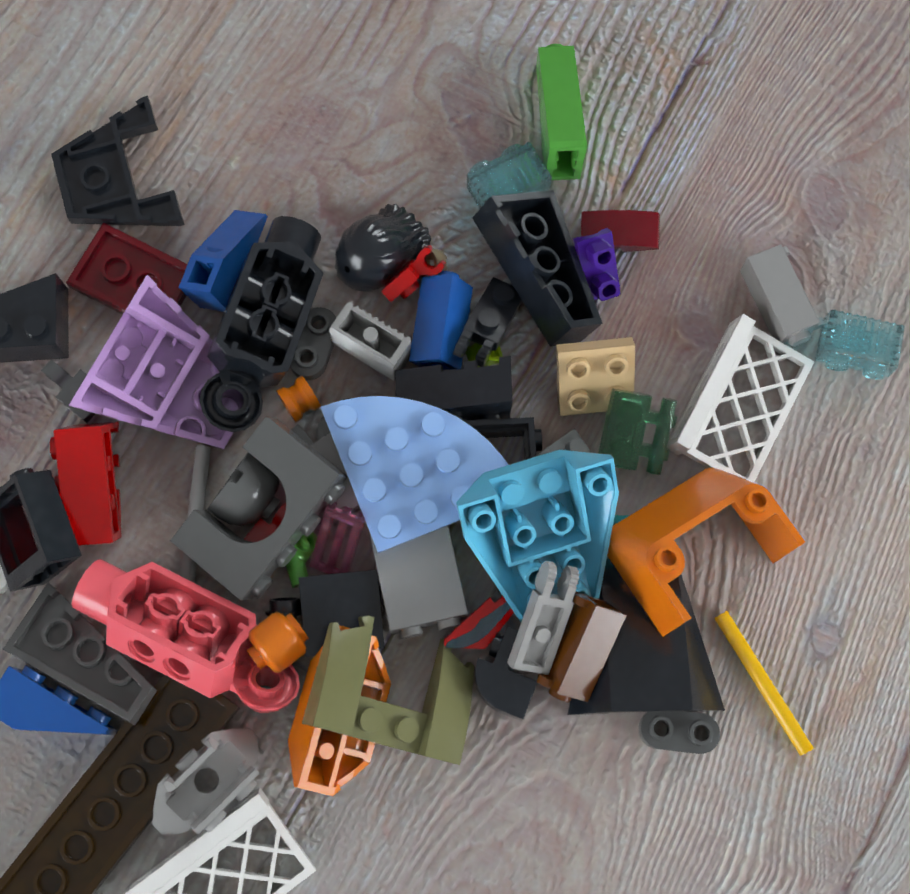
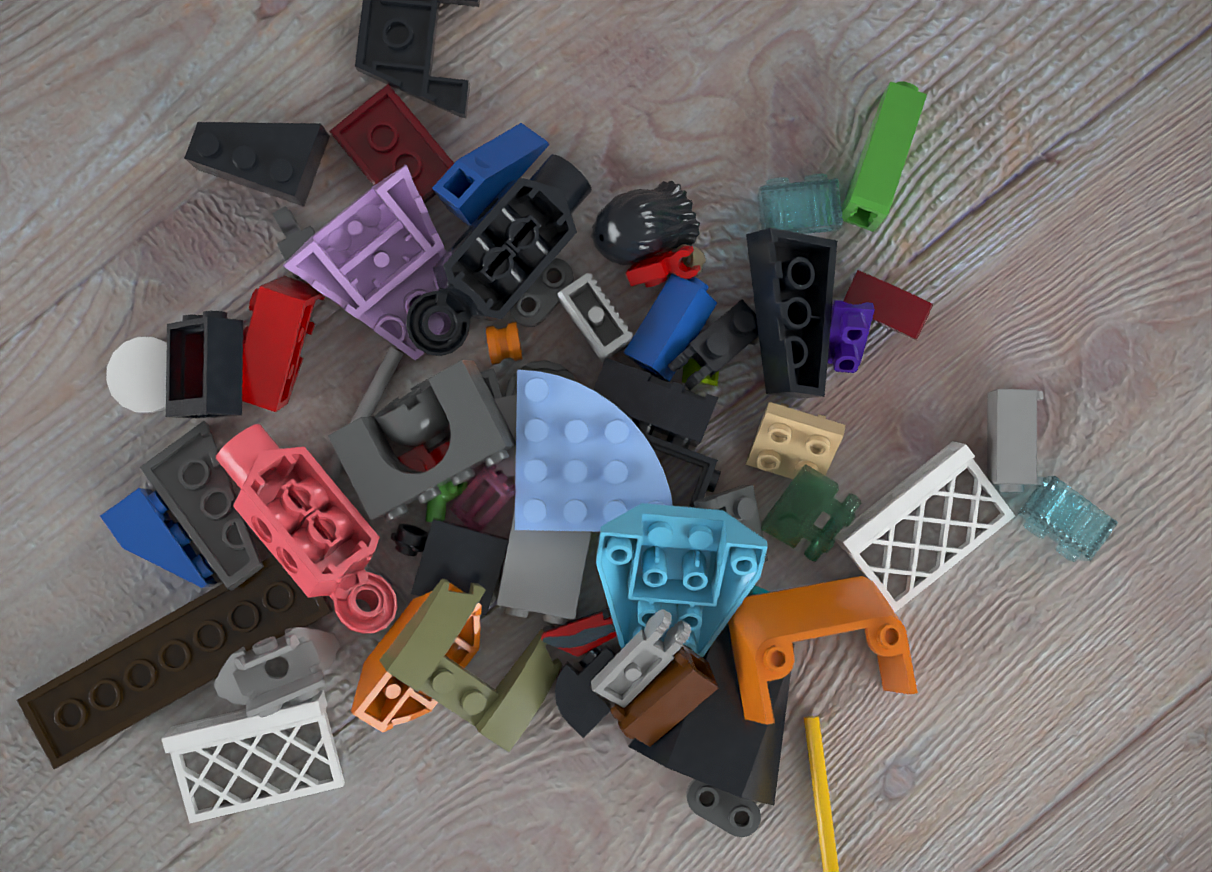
camera: 25 degrees right, 10 degrees up
(277, 642) = (388, 572): orange head -> none

